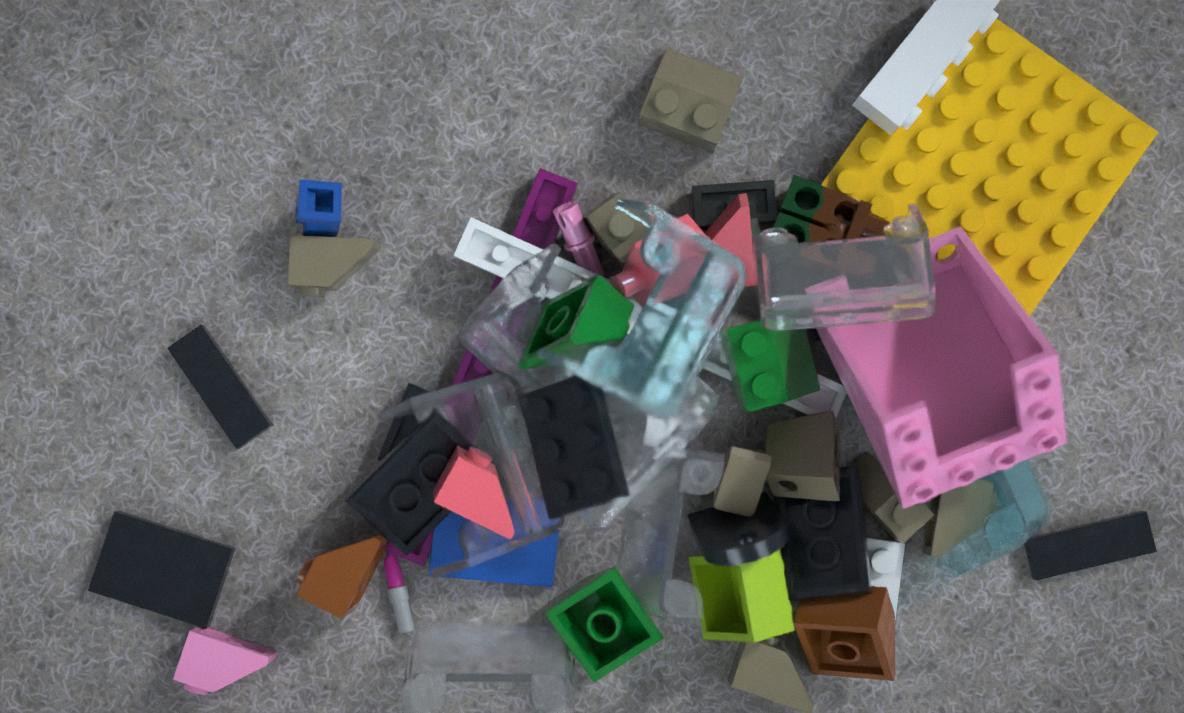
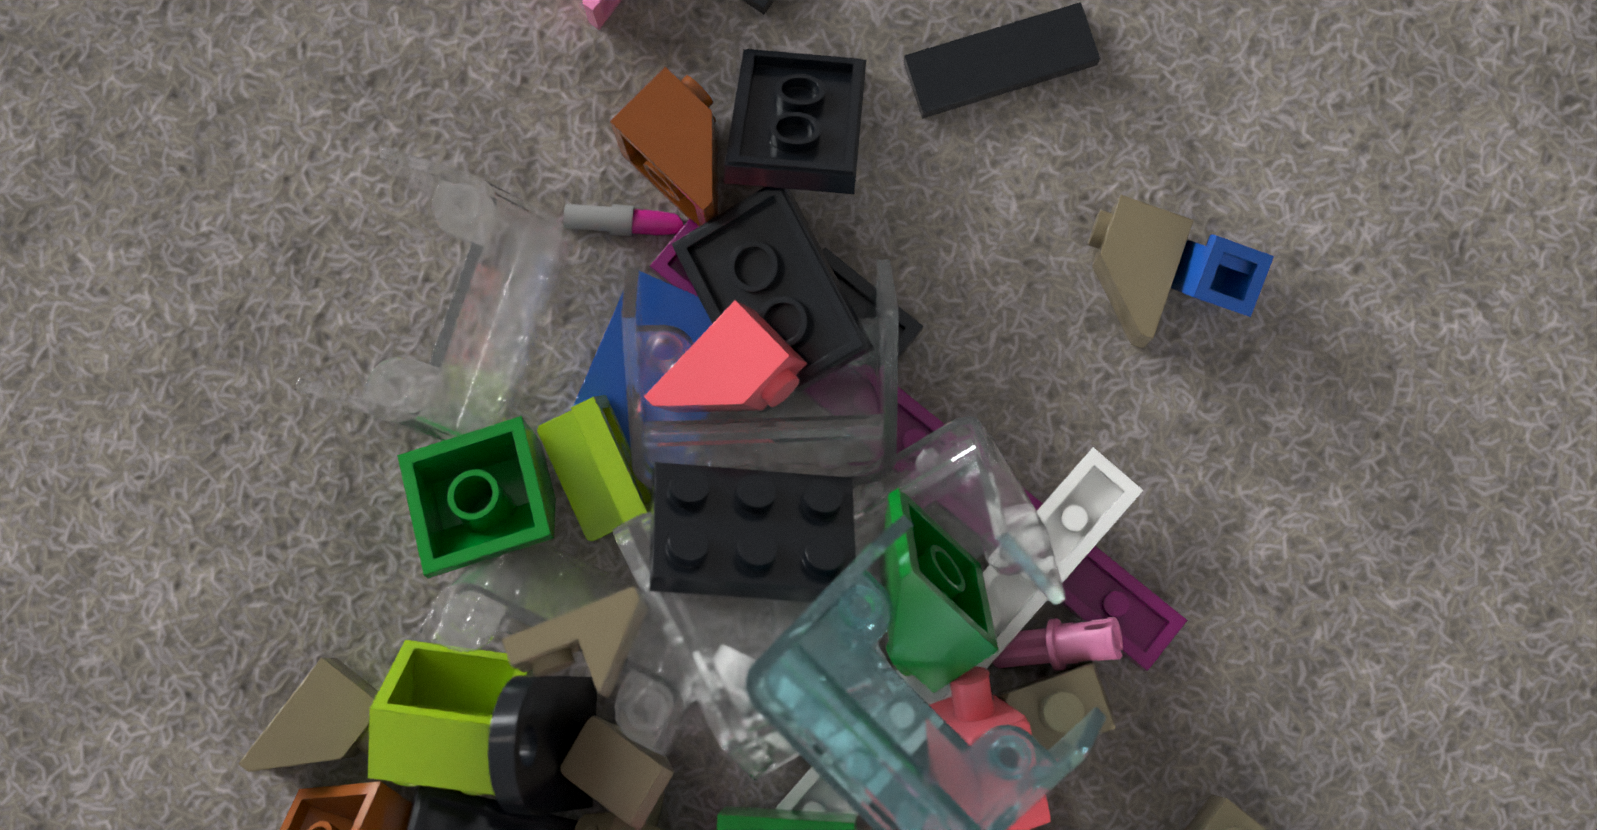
camera: 115 degrees right, 5 degrees down
(302, 502) = (796, 122): none -> black tile
(561, 557) = (594, 466): none -> lime panel
(663, 516) = (599, 629): none -> dark tan slope

